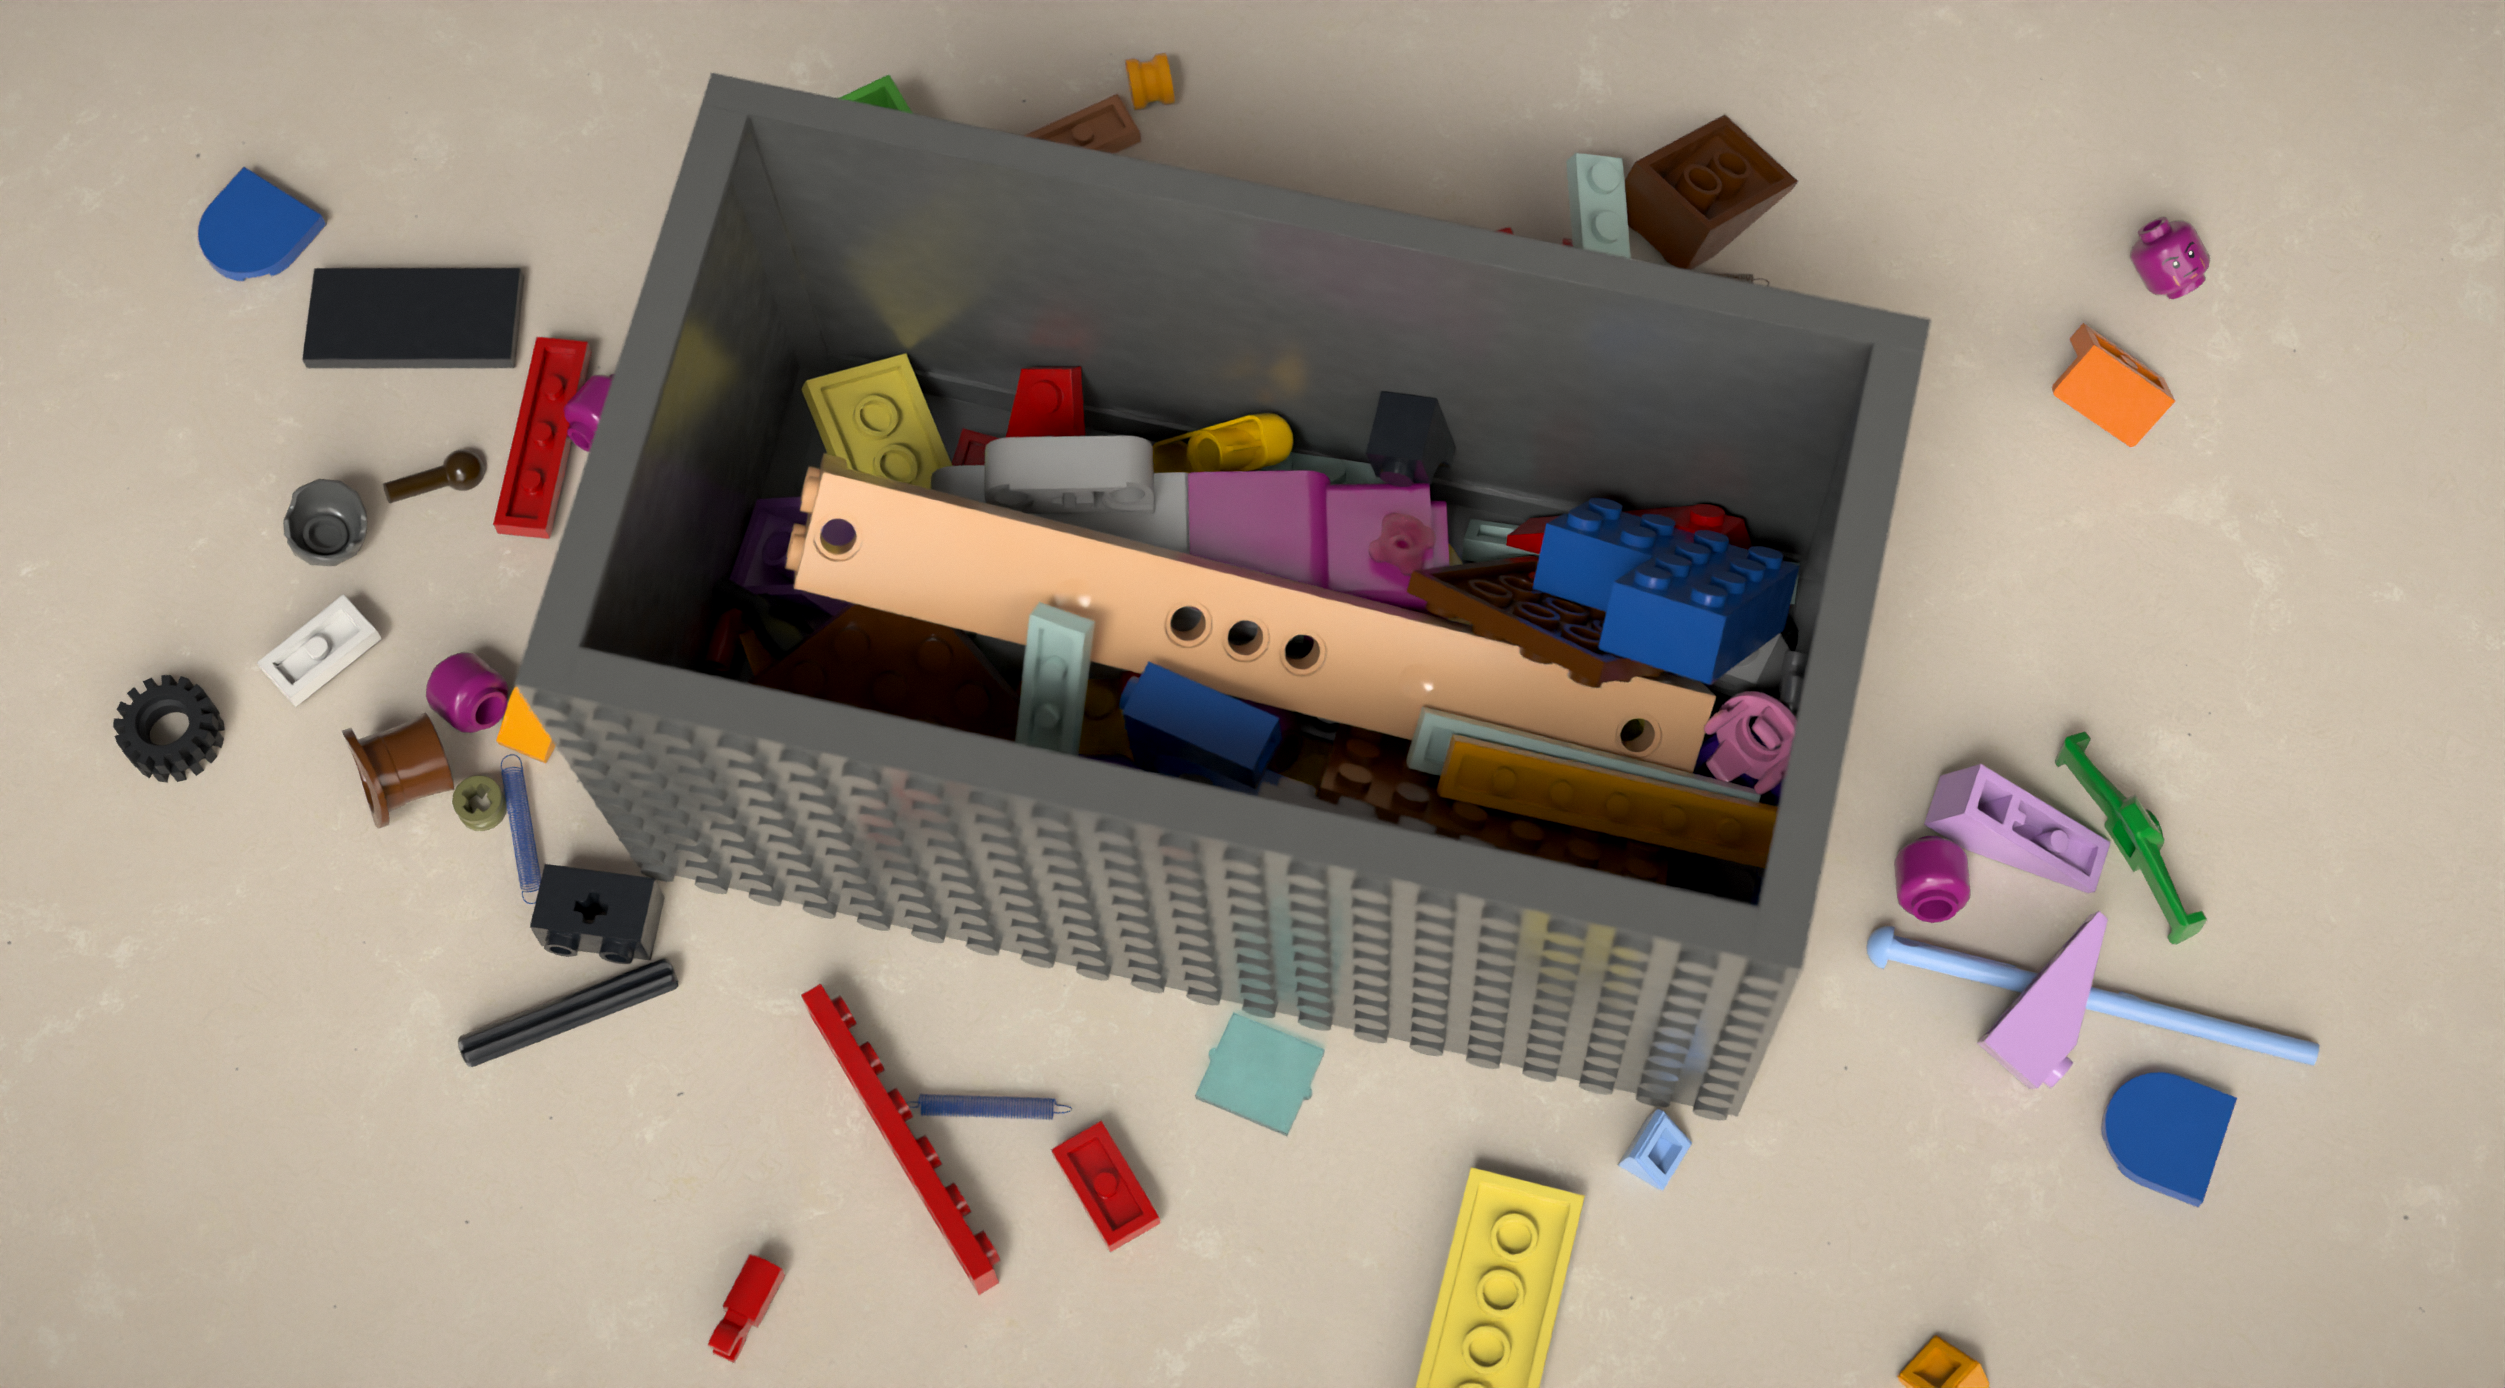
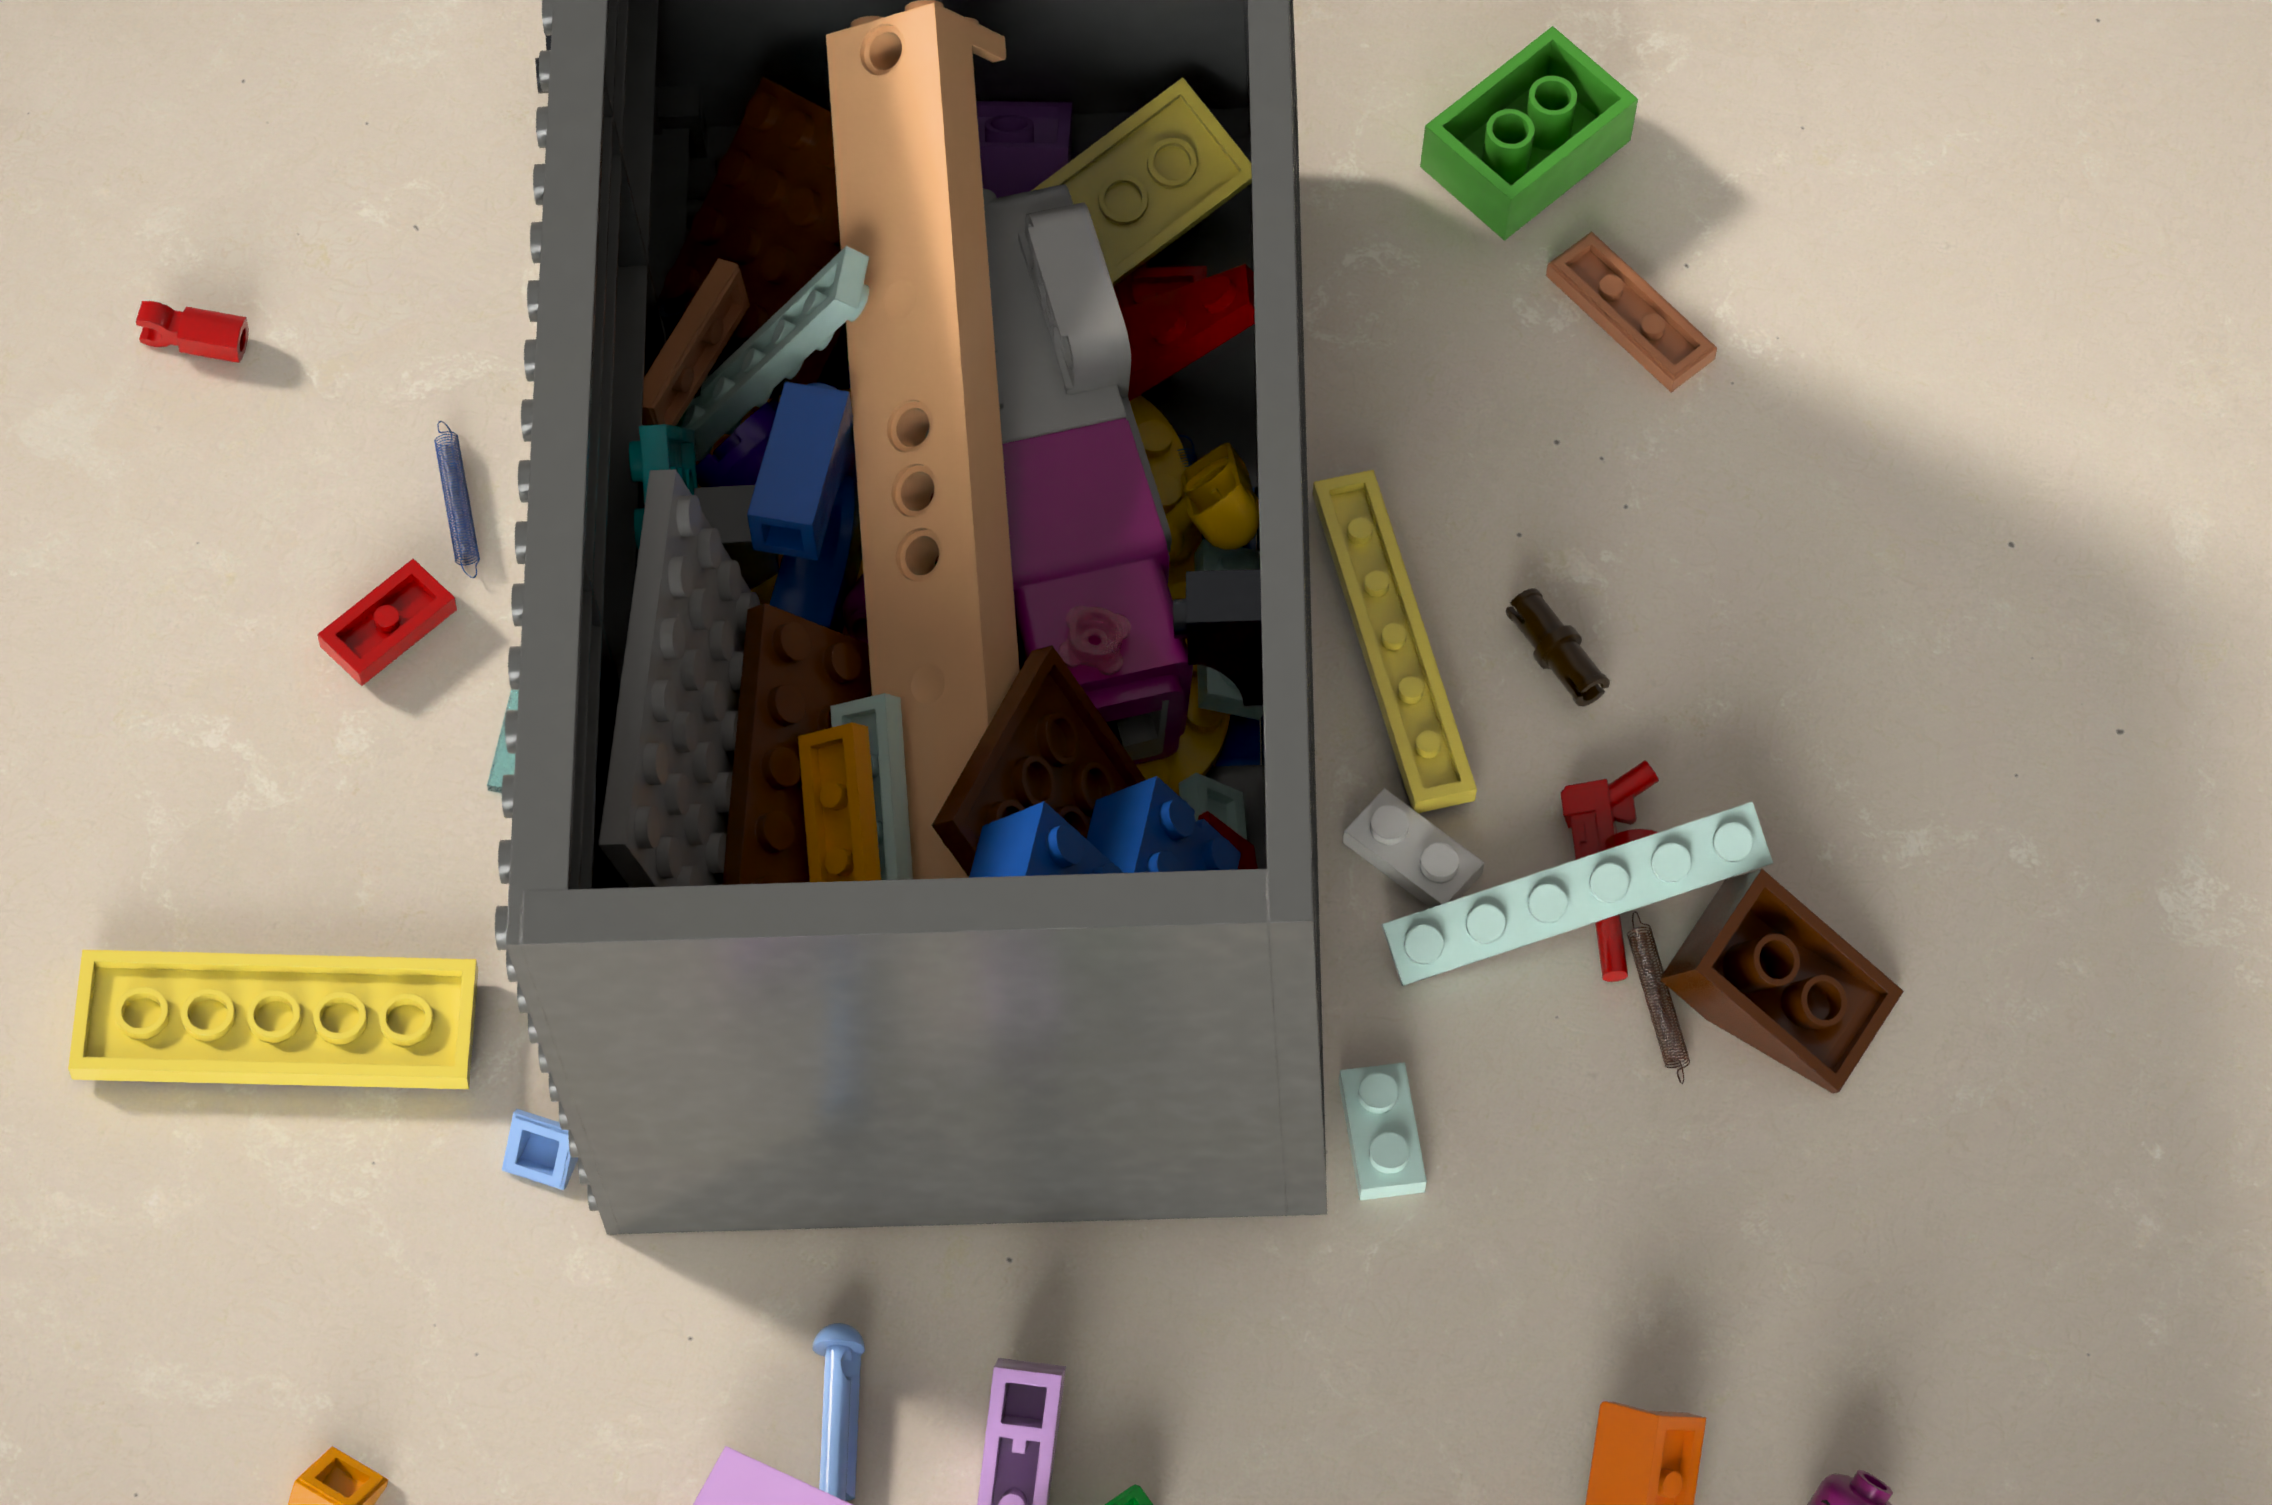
camera: 70 degrees right, 5 degrees down
(567, 1012) = (473, 100): black axle -> none
(914, 1155) = (391, 426): red plate -> none
(1149, 81) = (1740, 373): light orange wheel -> none
(1932, 879) = (932, 1378): magenta head -> none

